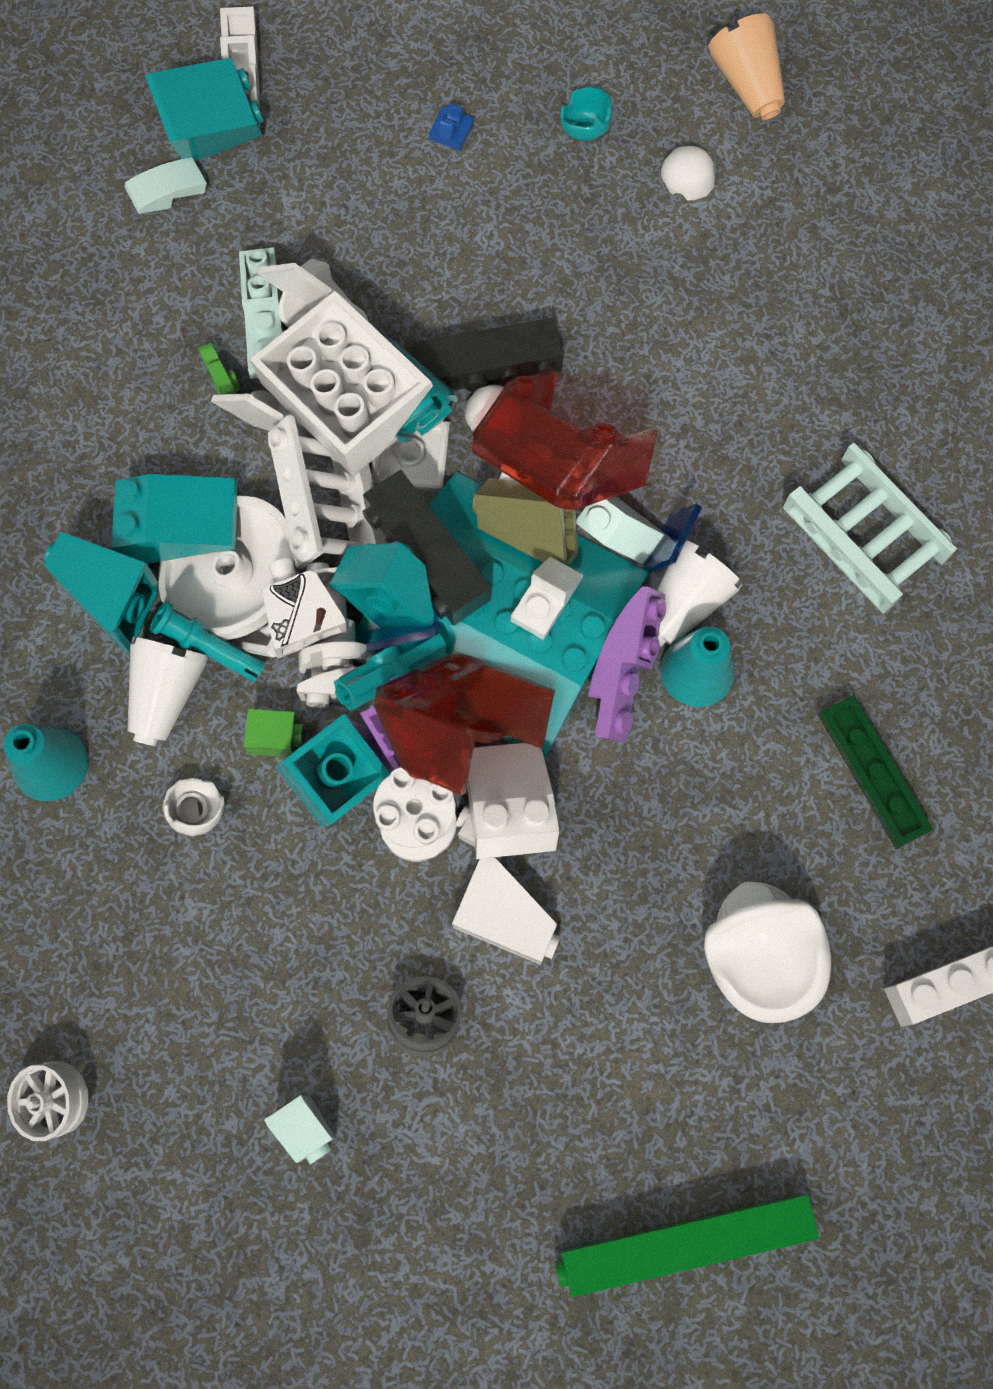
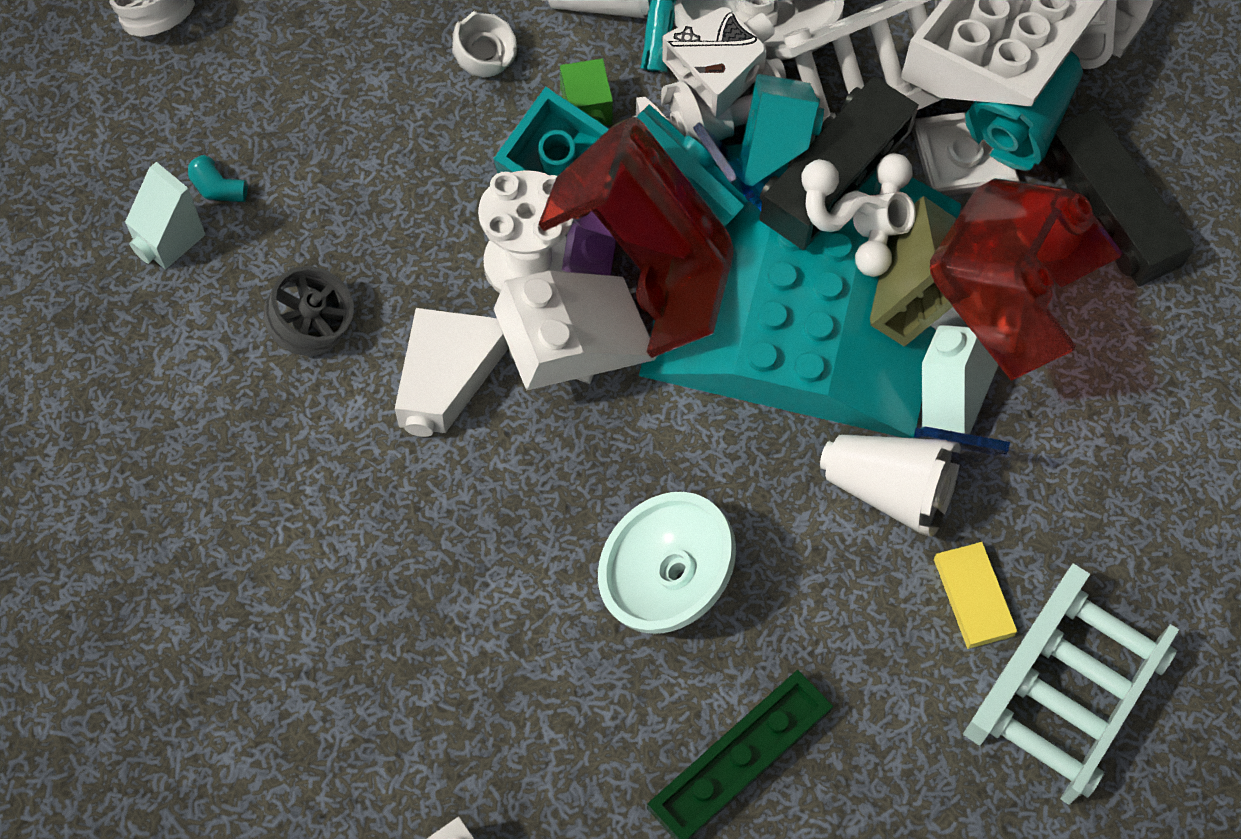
camera: 75 degrees right, 10 degrees down
(262, 1080) = (211, 183): none -> teal arm
(476, 536) = (872, 215): none -> white piece
(546, 597) = (833, 304): white slope -> none
(628, 647) = (785, 414): medium lavender slope -> none
(686, 1244) = (106, 650): green brick -> none
(699, 668) = (809, 513): teal cone -> none
(717, 806) = (654, 546): none -> light aqua dish
(768, 953) = (467, 661): white piece -> none
(784, 570) = (975, 595): none -> light yellow tile

